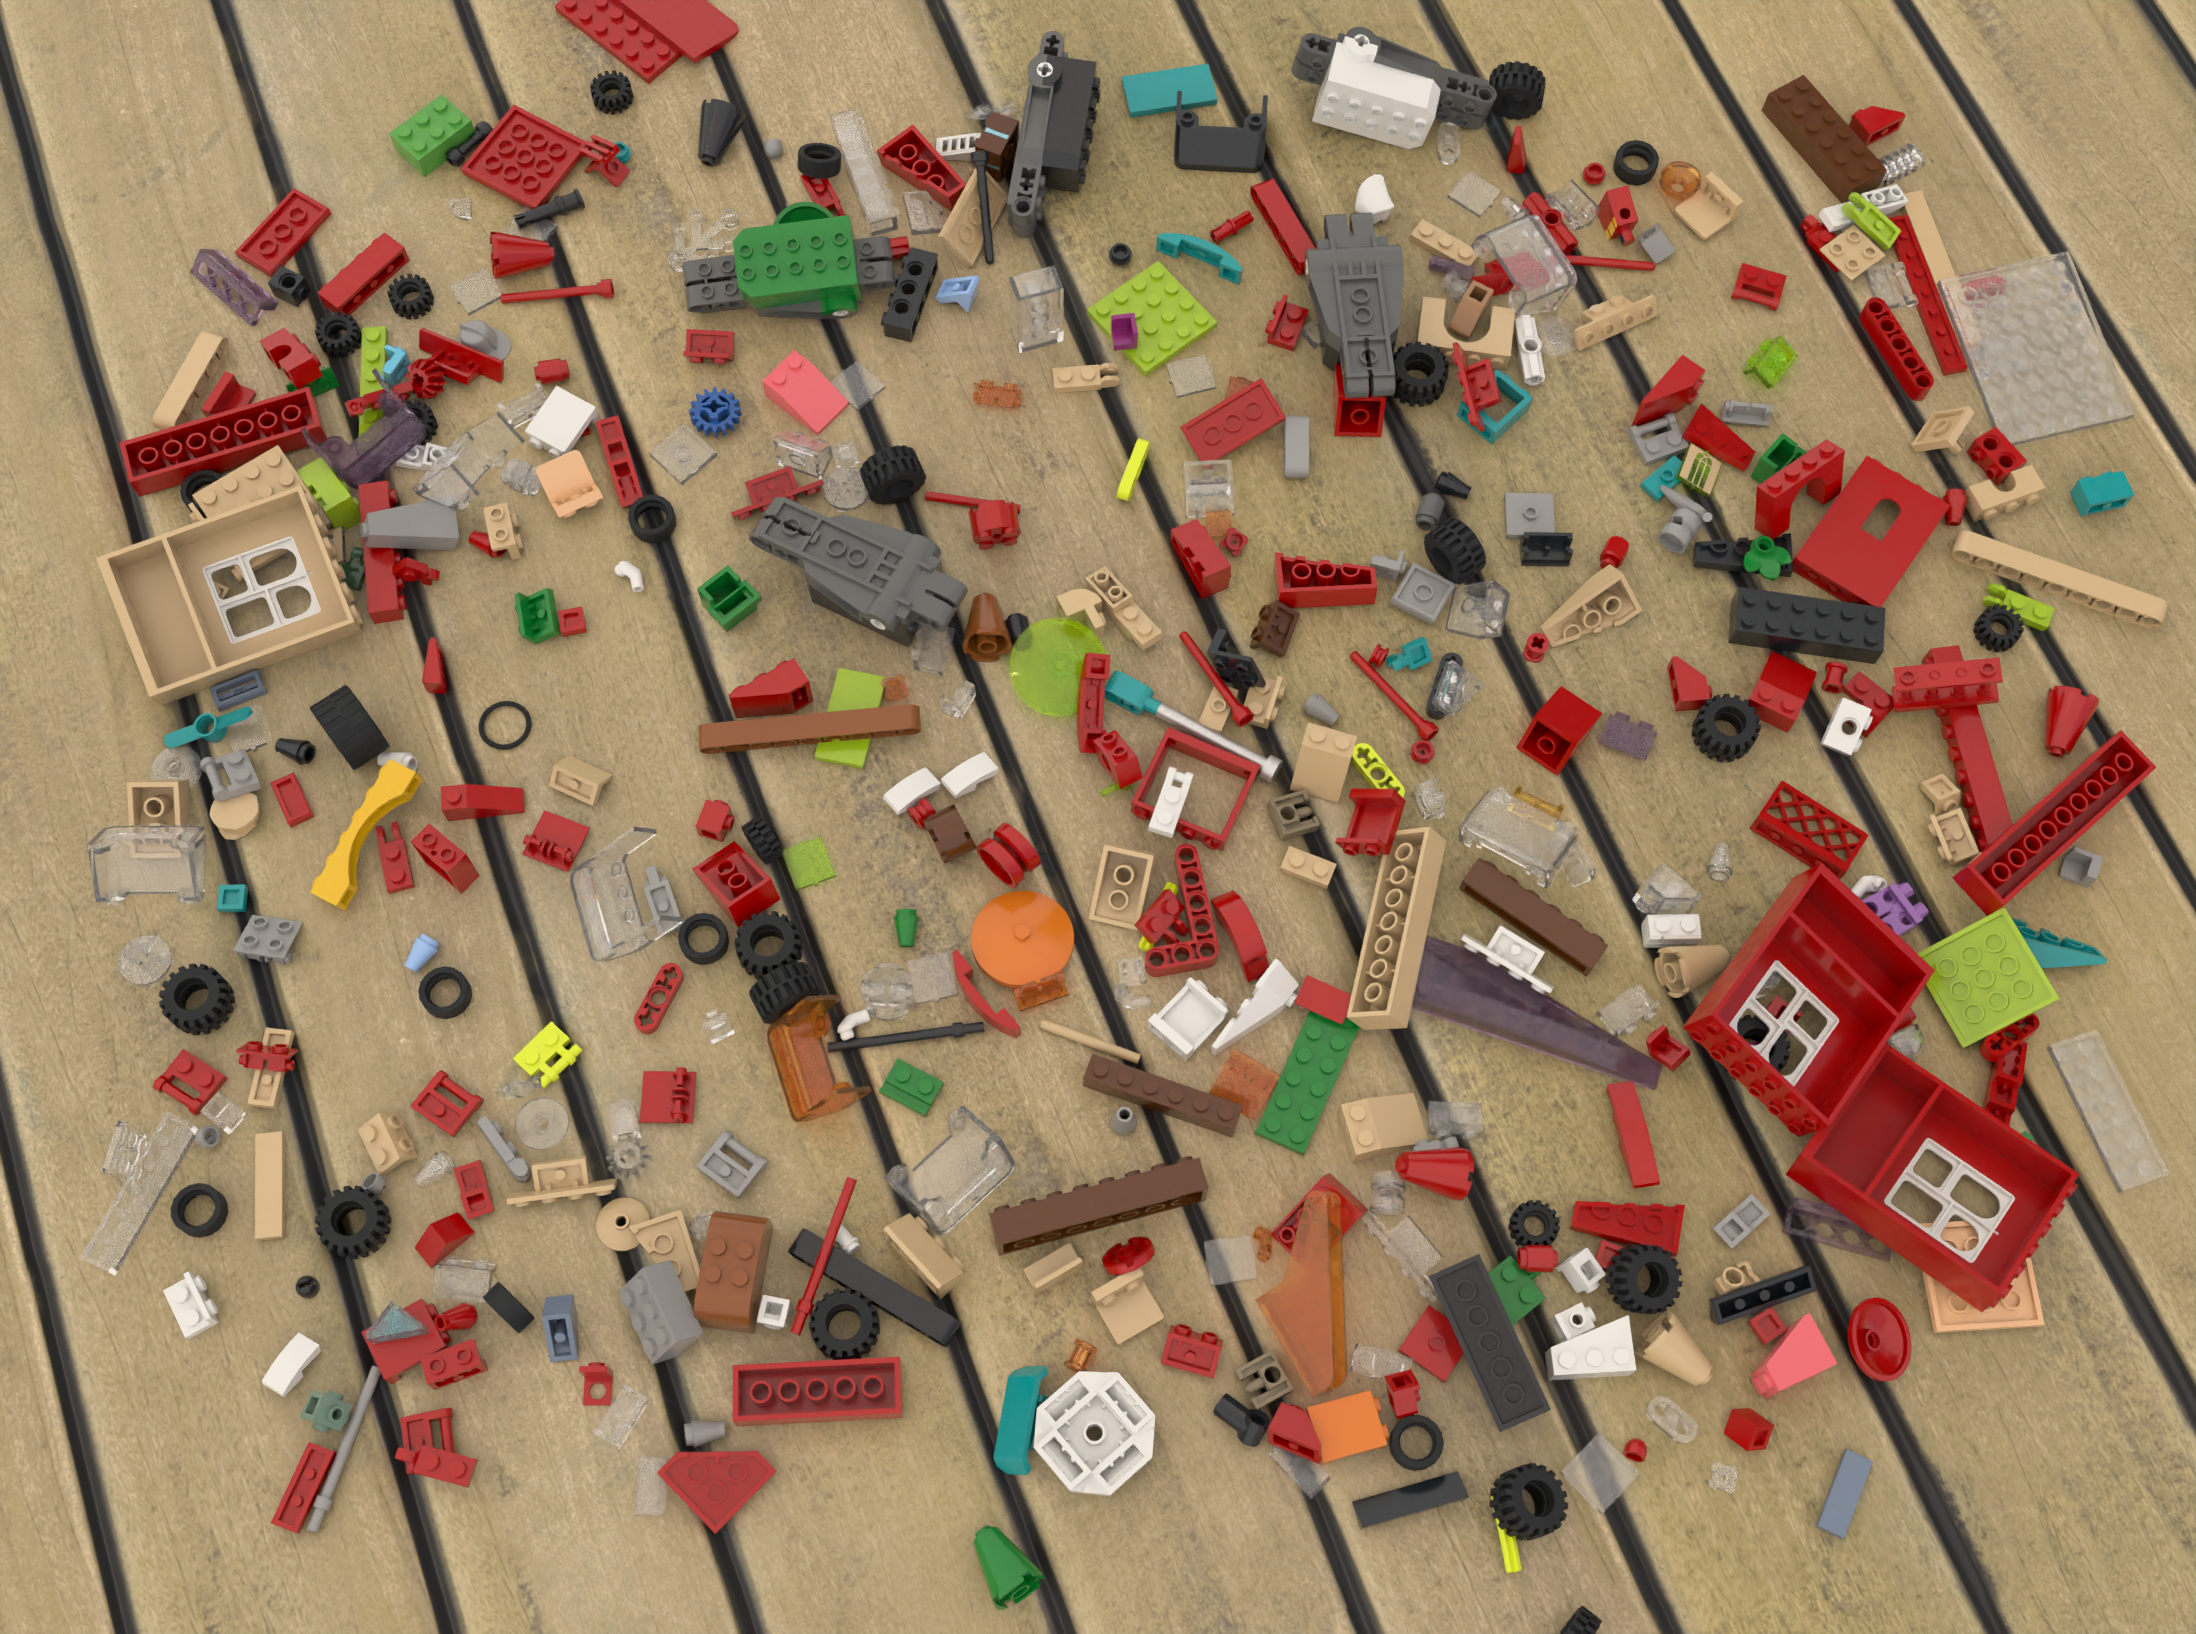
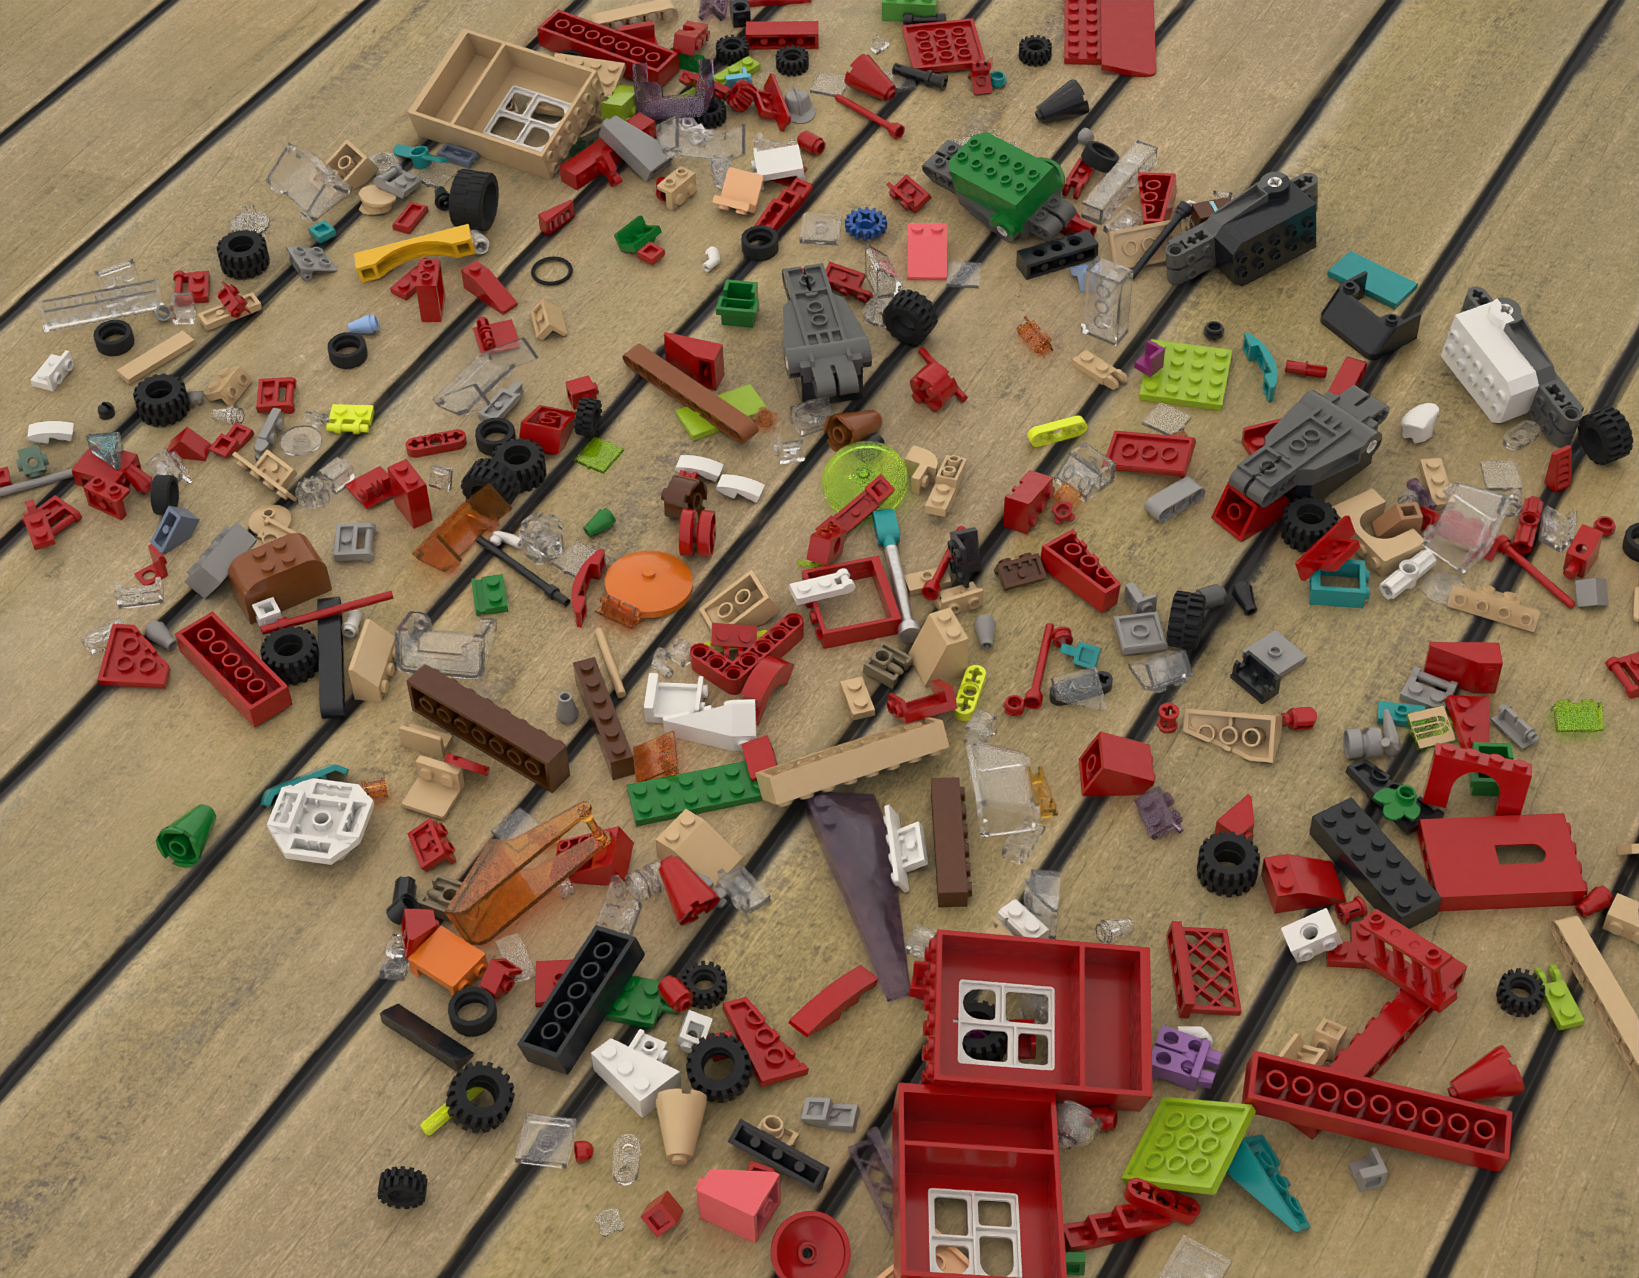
camera: 55 degrees right, 20 degrees down
(727, 1072) = (410, 493): none -> red brick

